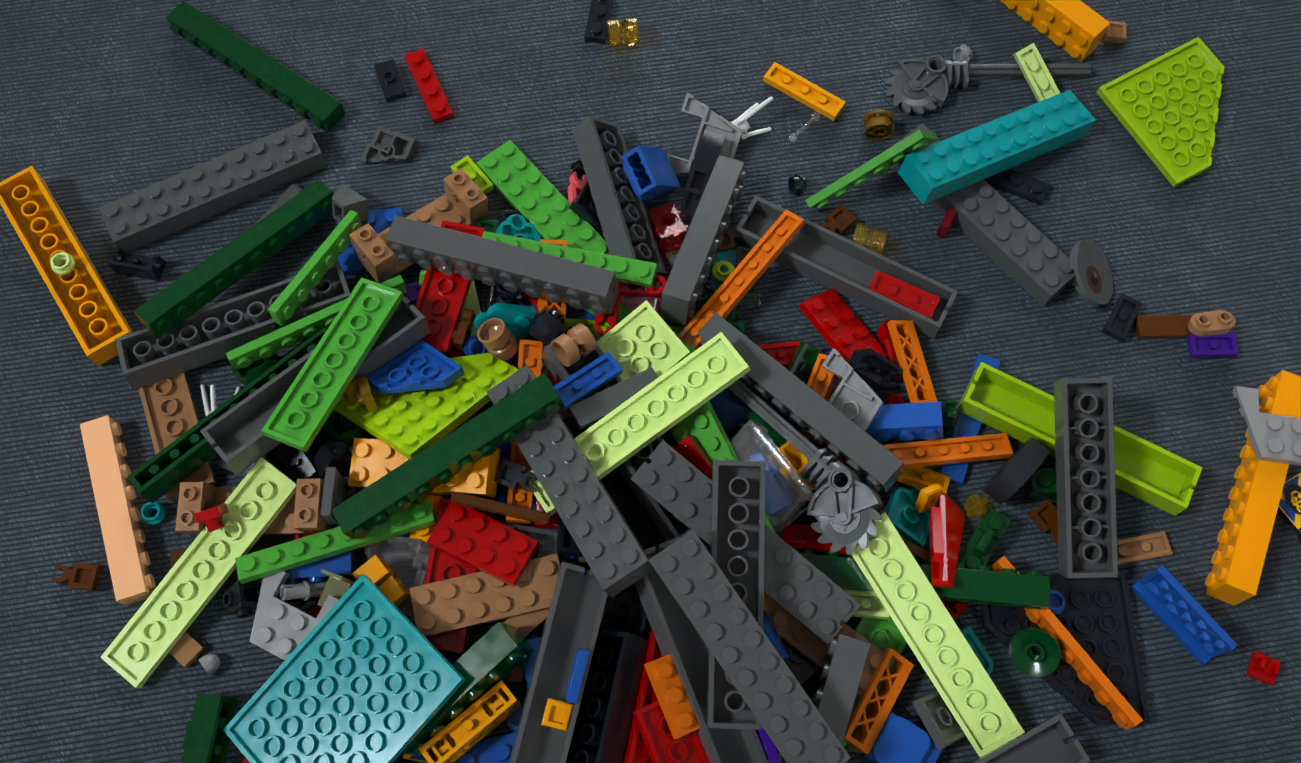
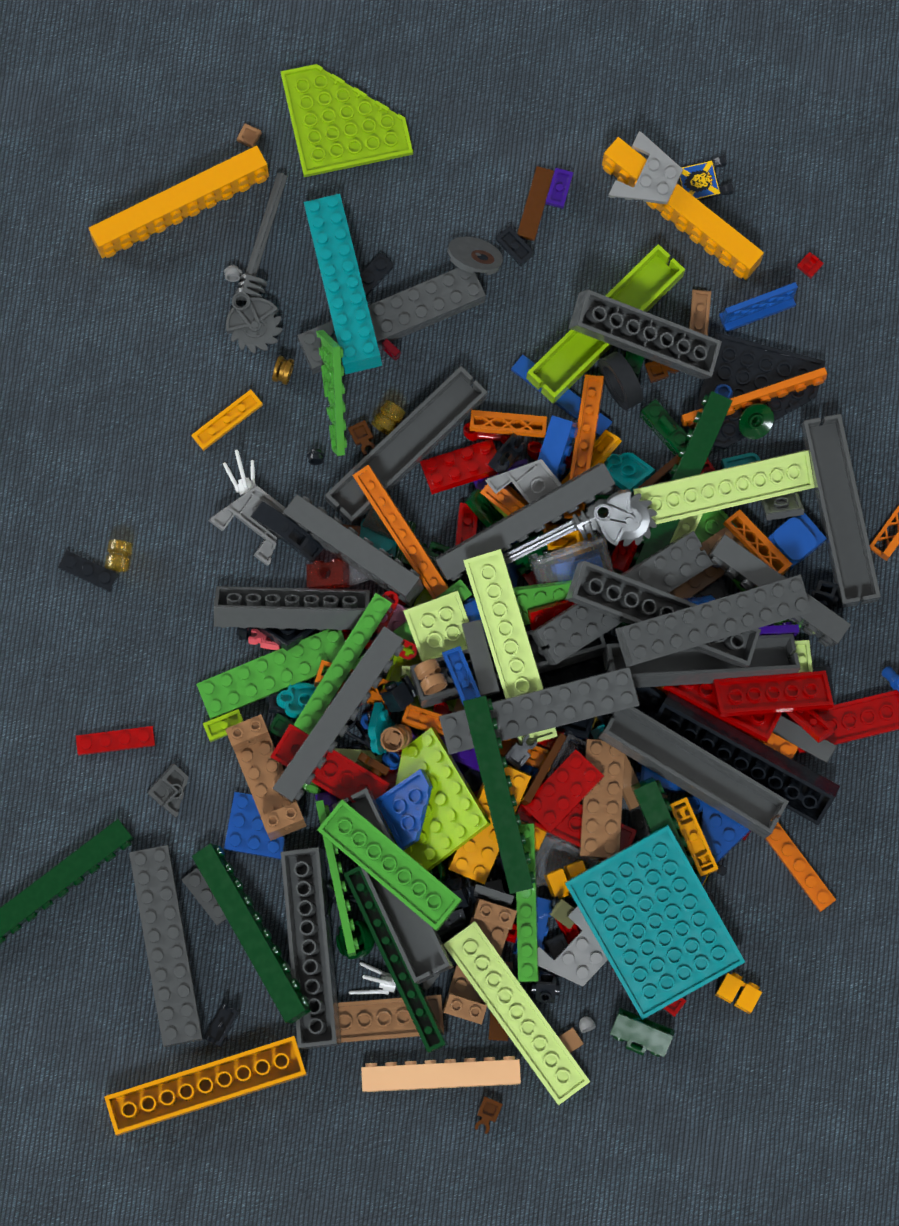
camera: 75 degrees left, 10 degrees up
(59, 259) = (220, 1084): yellowish green plate -> none
(148, 508) = (456, 1053): teal plate -> none
(212, 517) = (481, 990): red tile -> none
(301, 590) = (554, 937): light grey axle -> none
(314, 269) = (293, 873): bright green plate -> none
(346, 200) = (227, 833): dark grey slope -> none
(360, 390) = (418, 850): pearl gold bracket -> none
(390, 80) = (99, 773): black plate -> none
(557, 714) = (706, 769): light orange tile -> none
(576, 675) = (685, 746): blue tile -> none
(649, 172) = (276, 574): blue brick -> none
(671, 696) = (717, 685): orange plate -> none
(720, 276) = (387, 538): lime plate -> none
(814, 117) = (252, 419): clear hinge -> none
(904, 293) = (448, 408): red plate -> none
(928, 497) = (620, 452): light orange tile -> none
(945, 537) = (658, 453): red wedge -> none
(949, 415) = (557, 411): dark green plate -> none
(976, 505) = (633, 419): clear yellow plate -> none
(1036, 73) = (279, 221): yellowish green plate -> none
(1214, 323) = (543, 180): medium nougat plate -> none

